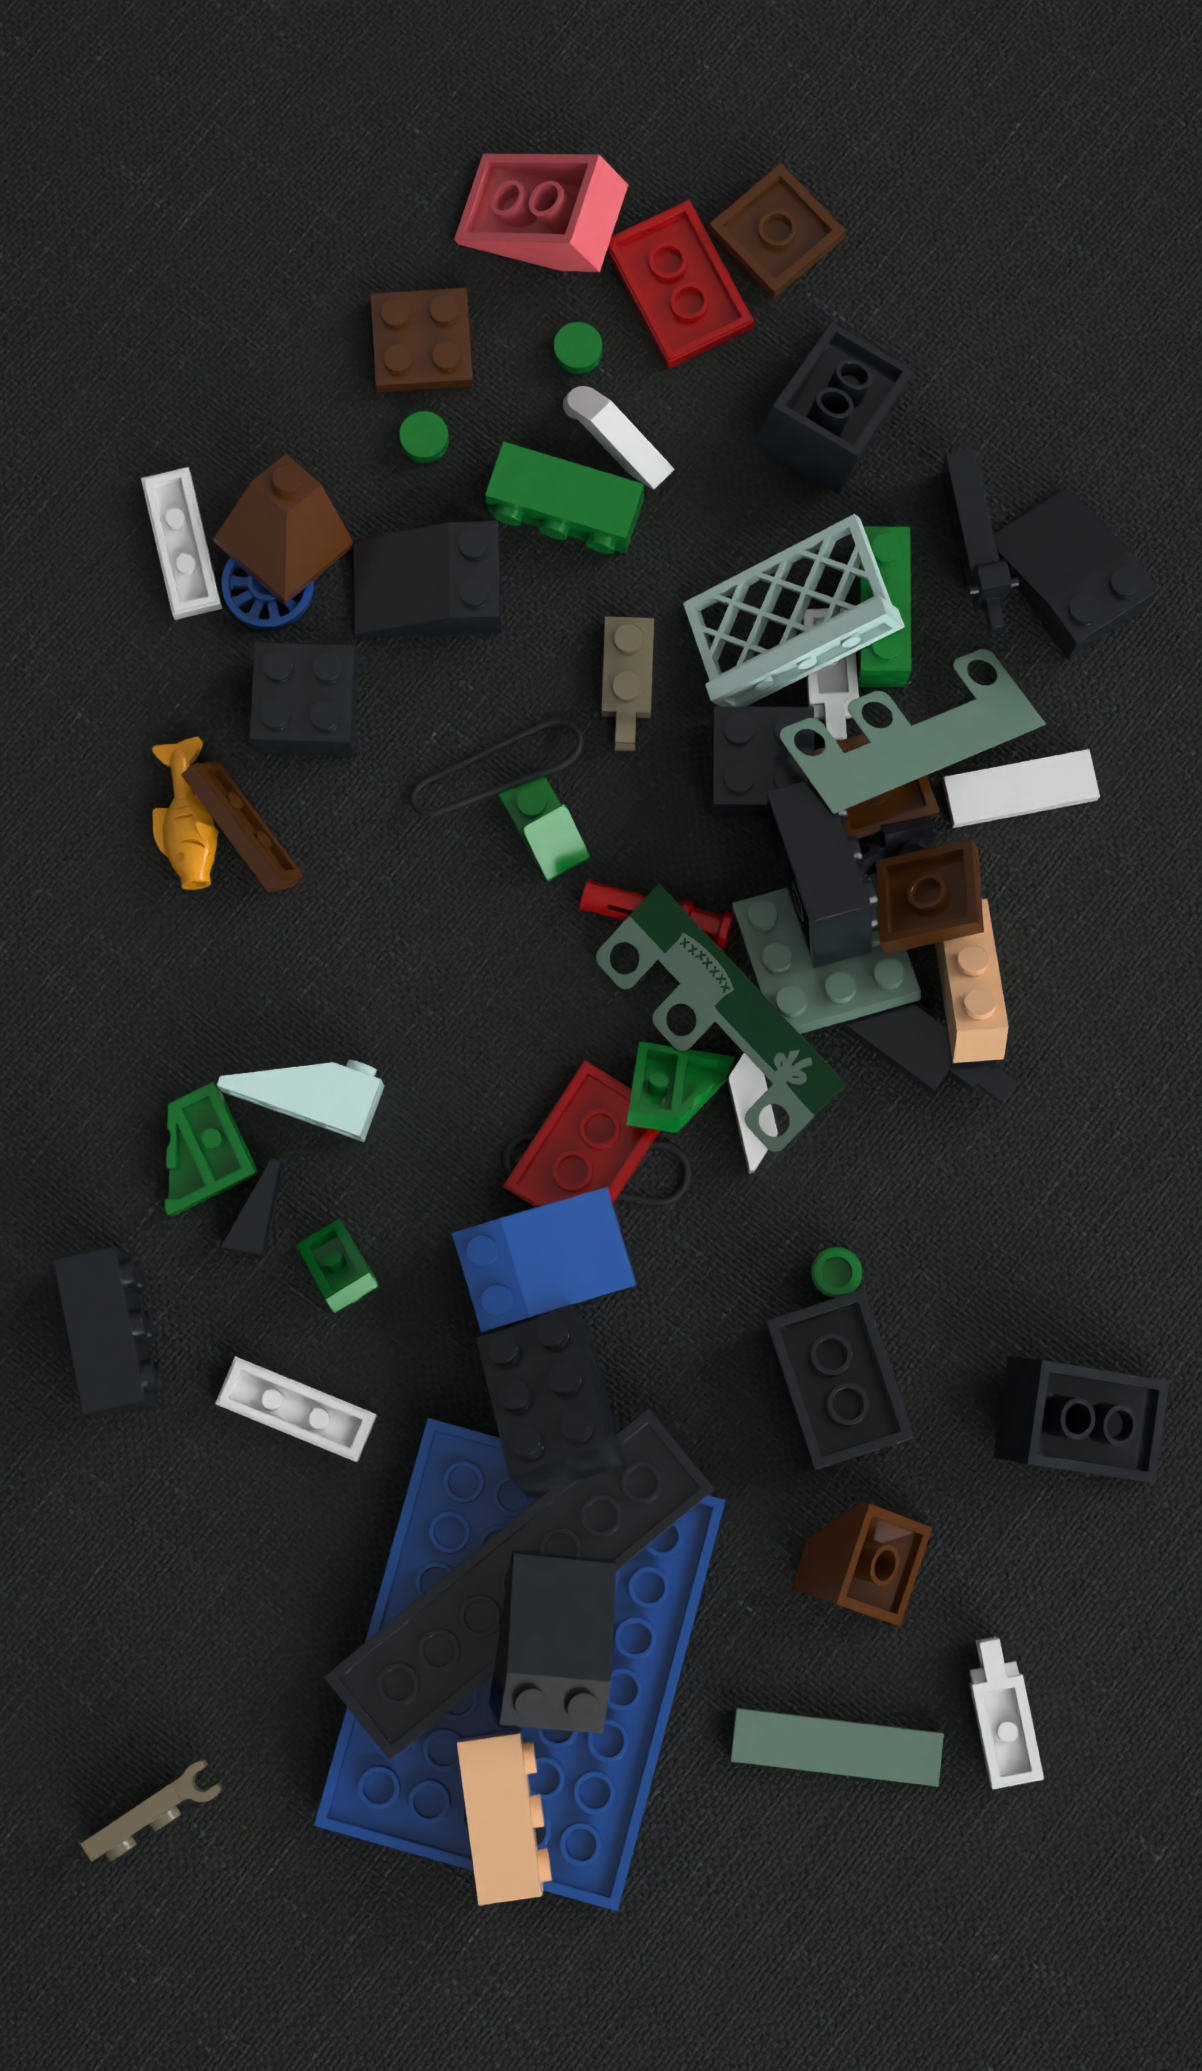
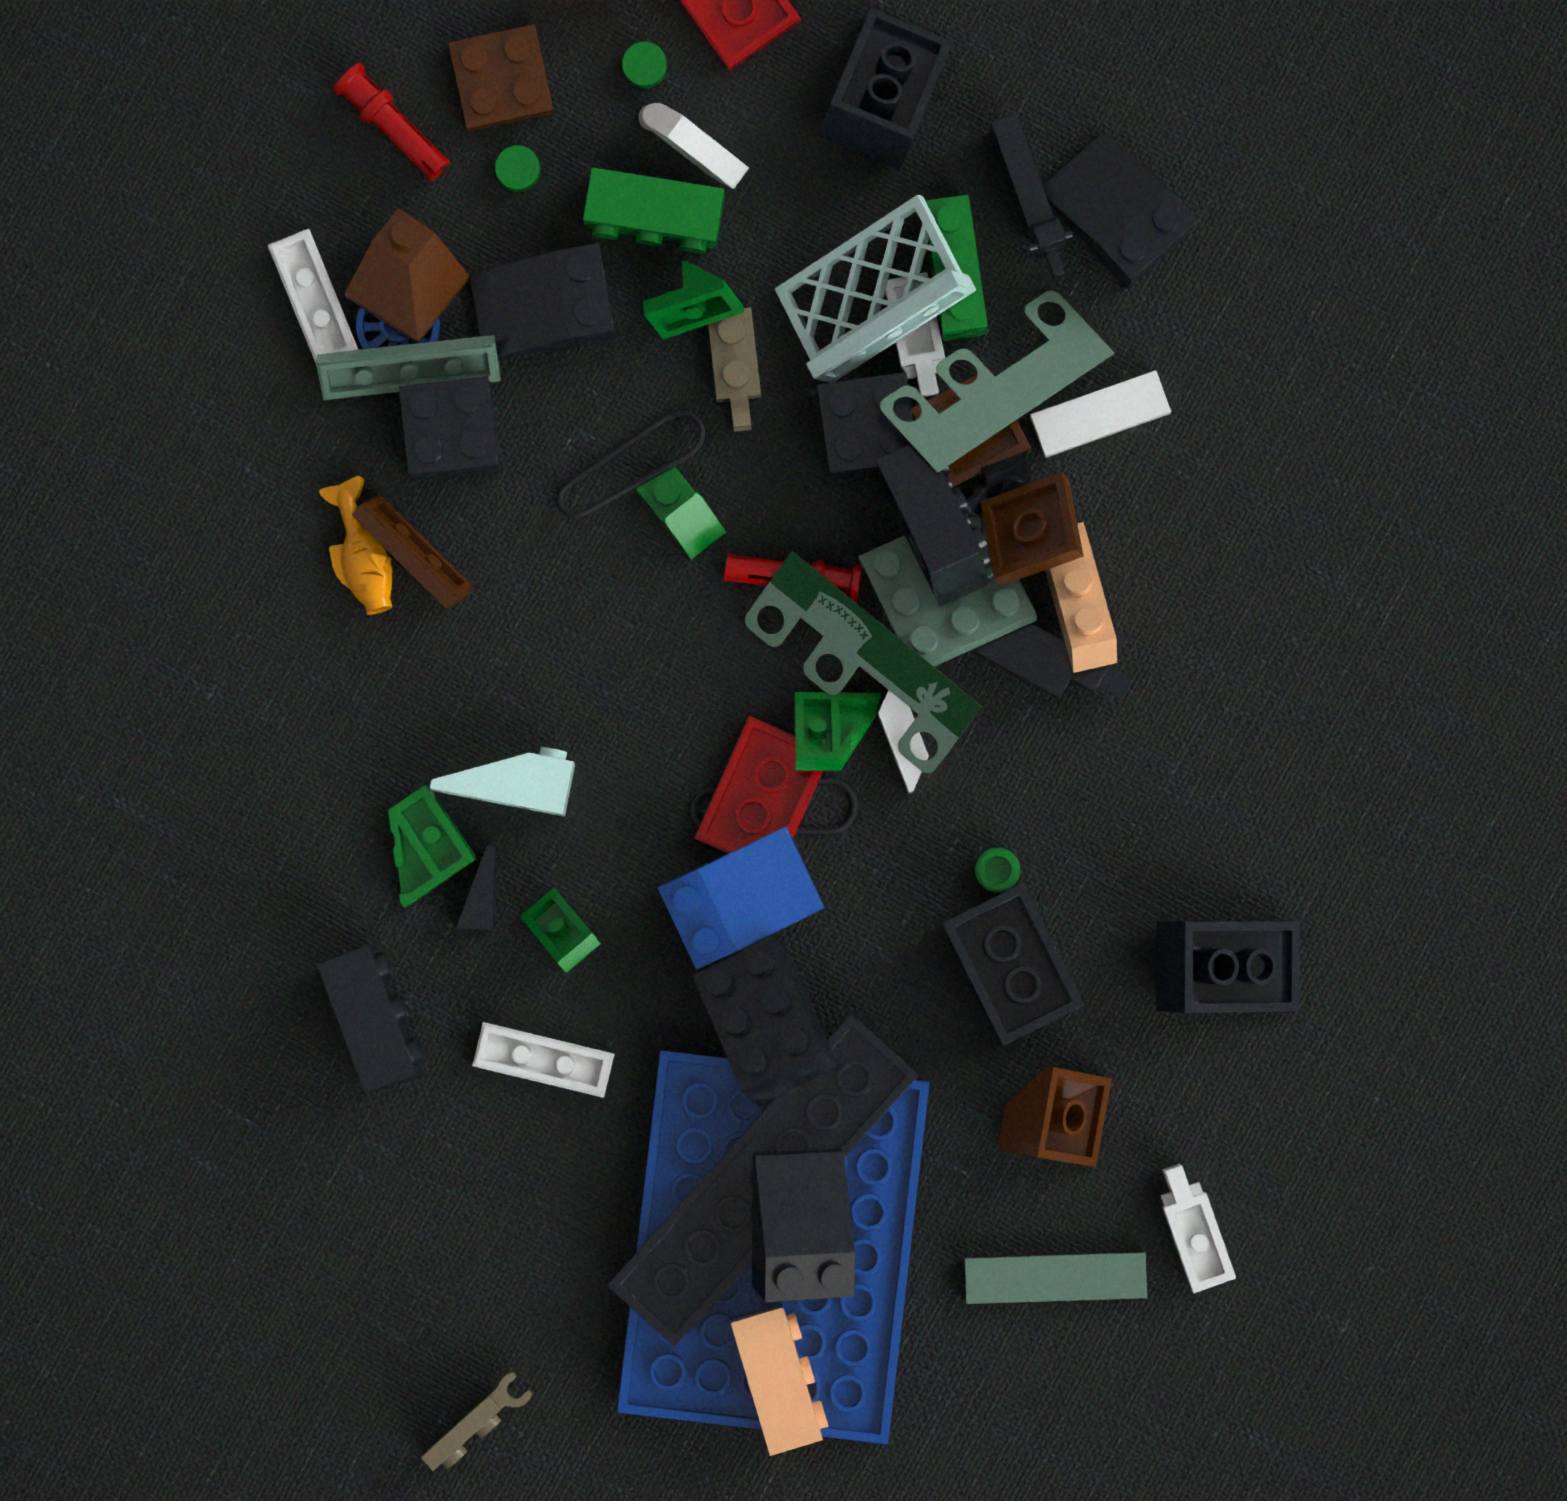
camera: 15 degrees left, 5 degrees up
(237, 625) = (387, 368): none -> sand green tile
(284, 351) = (377, 108): none -> red pin
(595, 604) = (697, 304): none -> green slope

